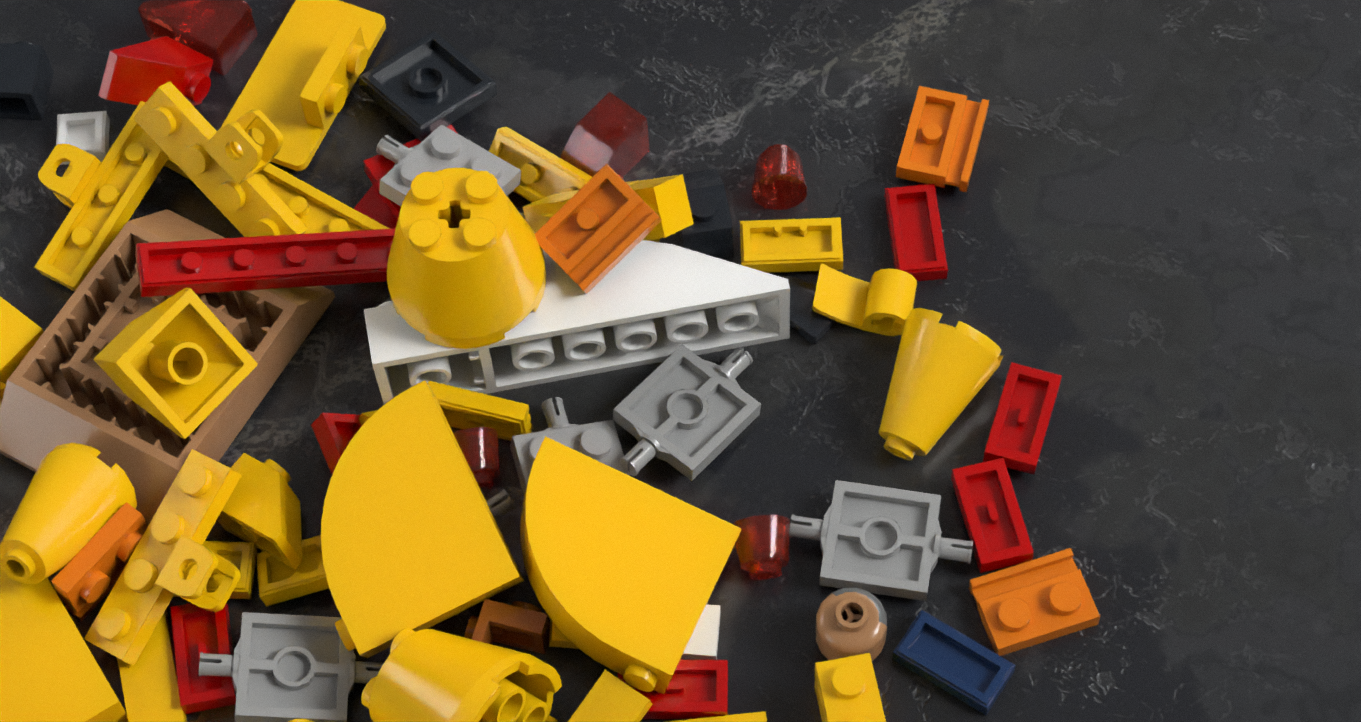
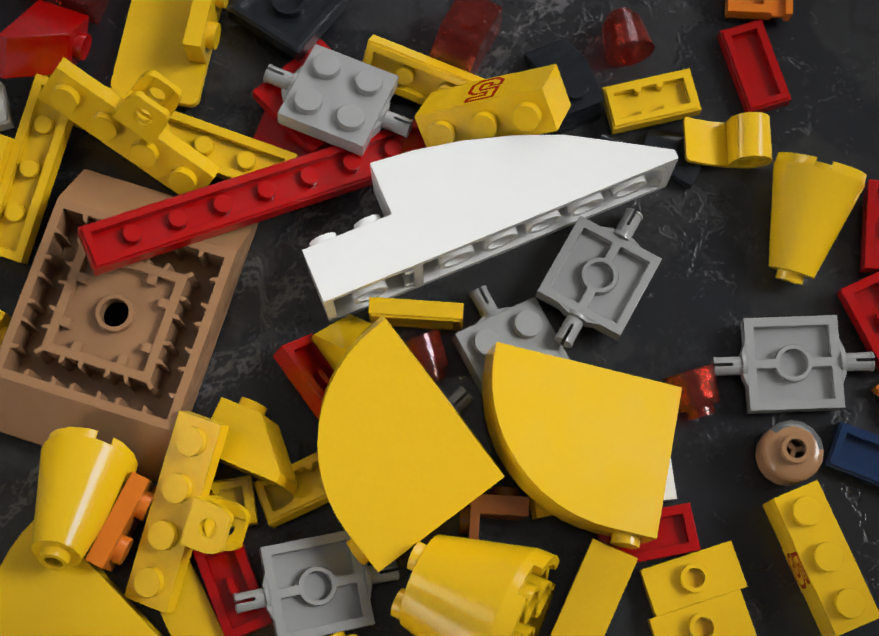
camera: 15 degrees left, 15 degrees up
(177, 362) = (144, 333): yellow slope -> none
(463, 260) = (393, 221): yellow cone -> none
(597, 228) = (499, 138): orange plate -> none

